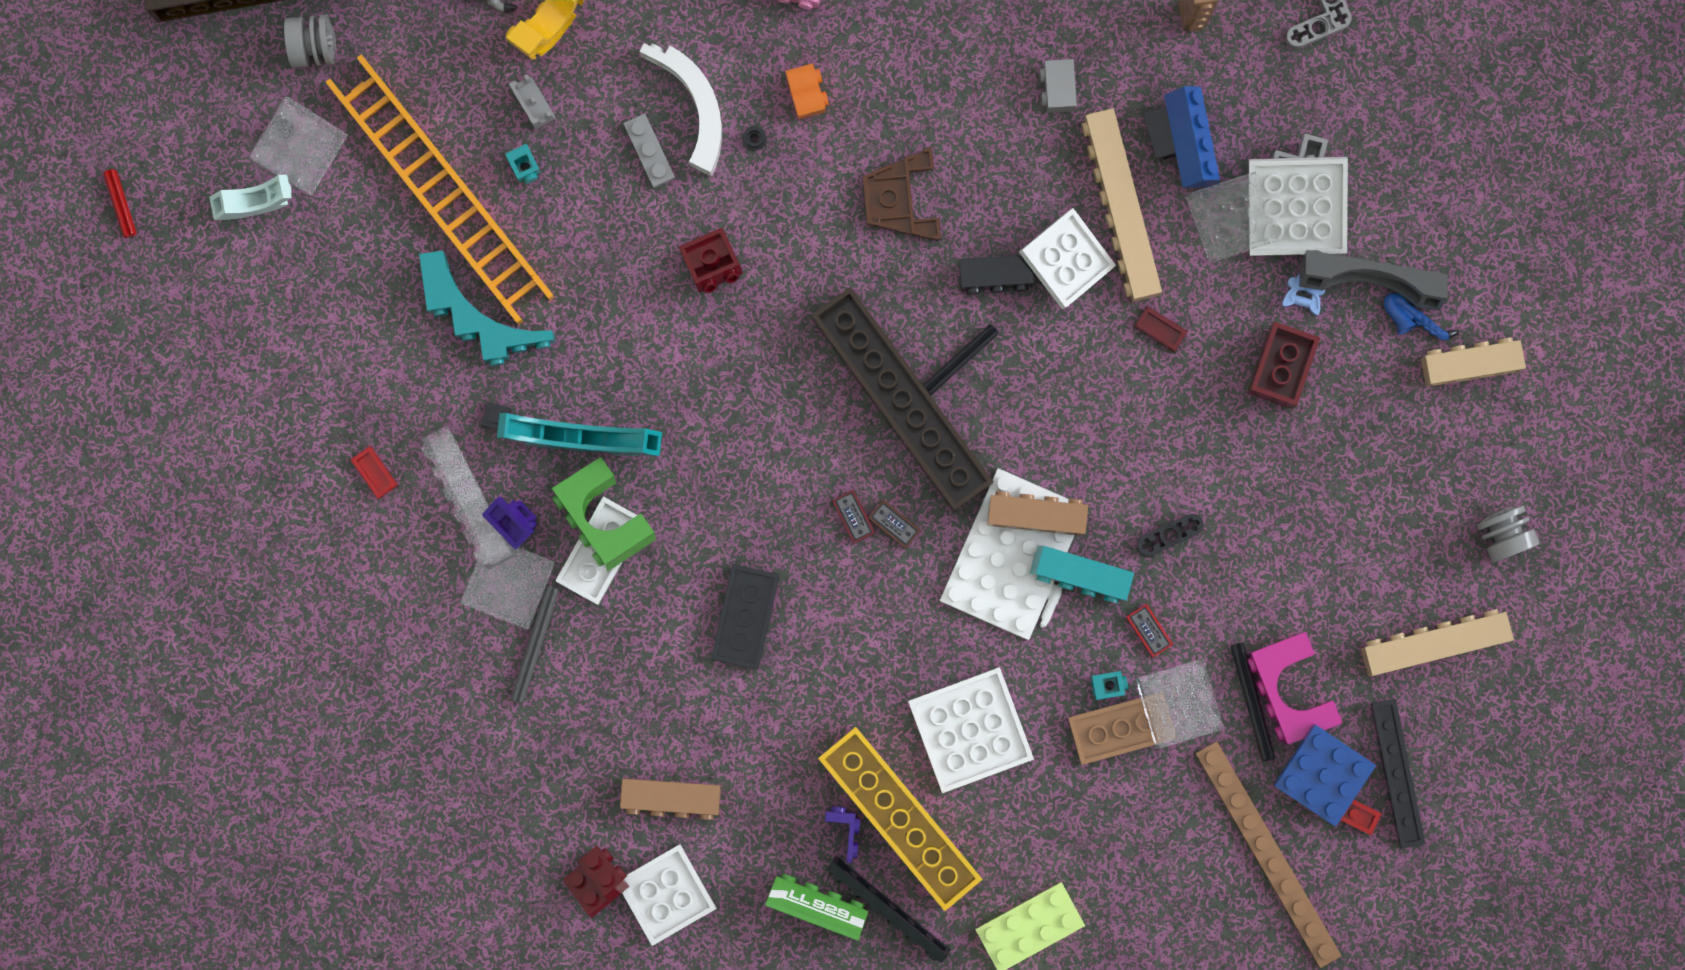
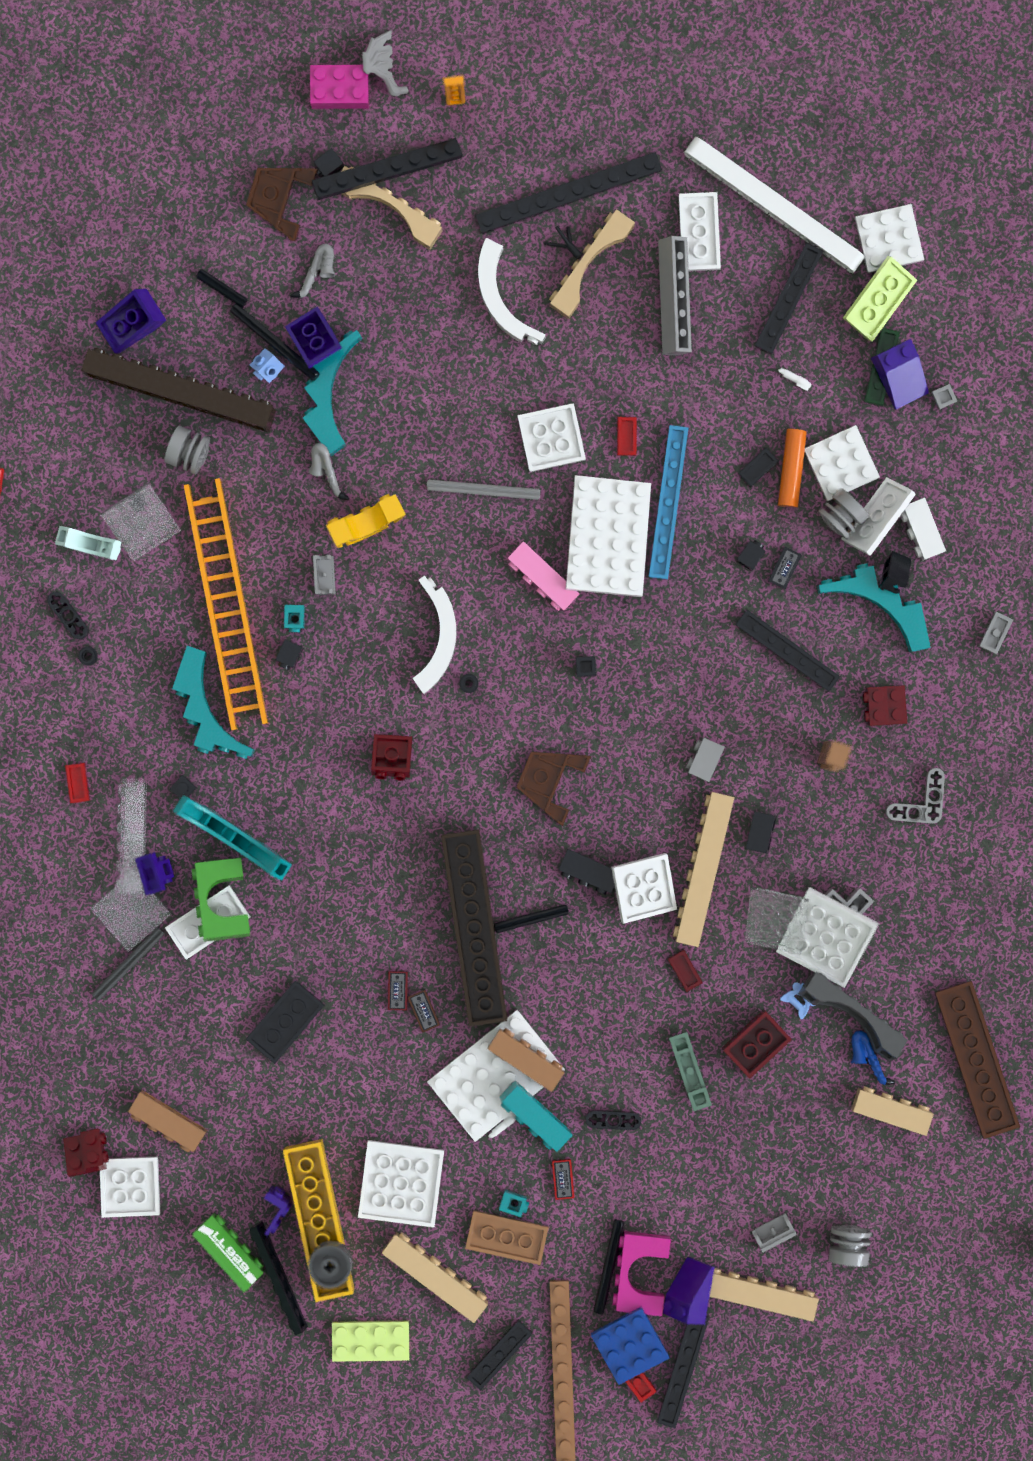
camera: 25 degrees right, 5 degrees up
(266, 283) = (63, 601): none -> black beam
(306, 325) = (83, 660): none -> black plate
(538, 207) = (289, 654): none -> black brick
(649, 151) = (389, 653): light grey plate -> none
(806, 91) = (522, 669): orange brick -> none
(874, 51) = (585, 666): none -> black brick
(954, 856) = (326, 1275): none -> dark grey wheel
(1065, 815) = (435, 1277): none -> tan brick
(1180, 703) = (556, 1242): clear plate -> none
(1183, 865) = (499, 1355): none -> black plate
(1192, 137) = (778, 848): blue slope -> none
(1225, 436) = (690, 1071): none -> sand green slope
(1359, 679) = (690, 1292): none -> dark purple slope
(1415, 566) = (774, 1232): none -> light grey hinge
(1535, 258) = (977, 1059): none -> reddish brown plate

